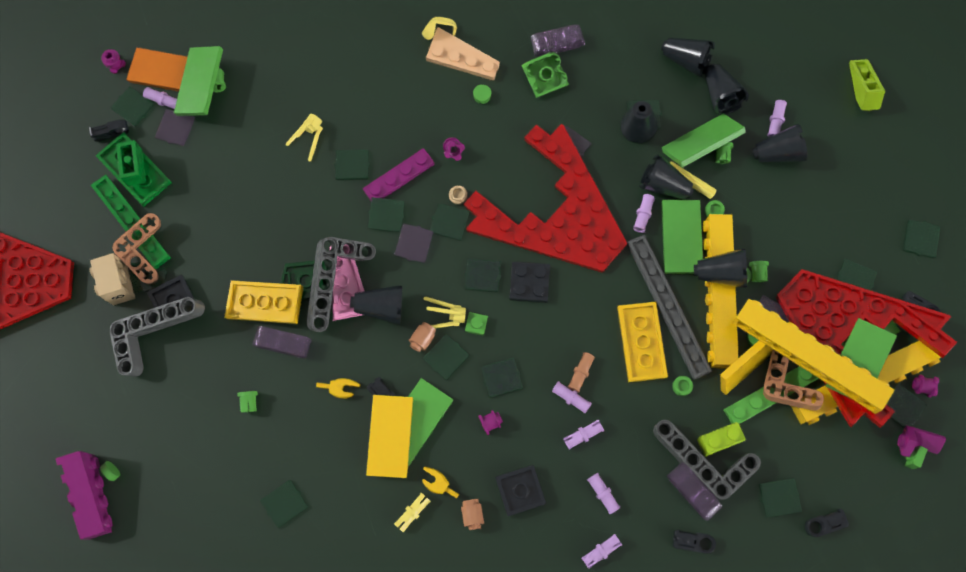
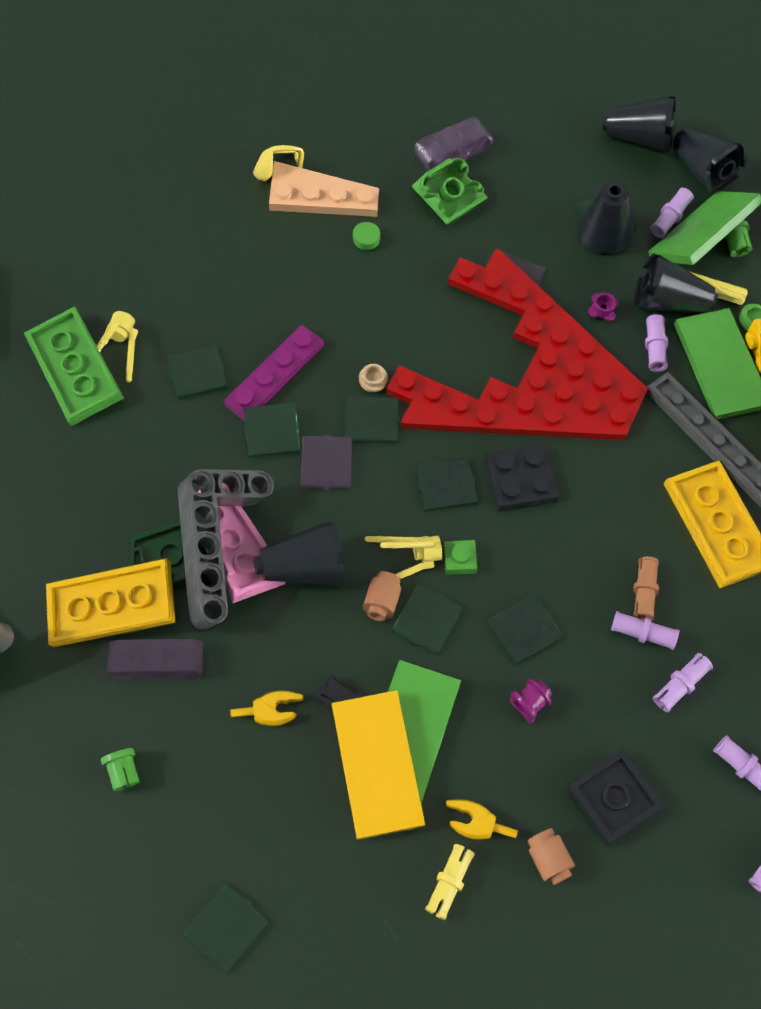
camera: 20 degrees left, 10 degrees down
(278, 143) = (73, 366): none -> bright green tile
(454, 152) = (353, 315): magenta brick -> none
(617, 174) = (603, 300): none -> magenta plate
(686, 123) = (671, 213): none -> lavender pin

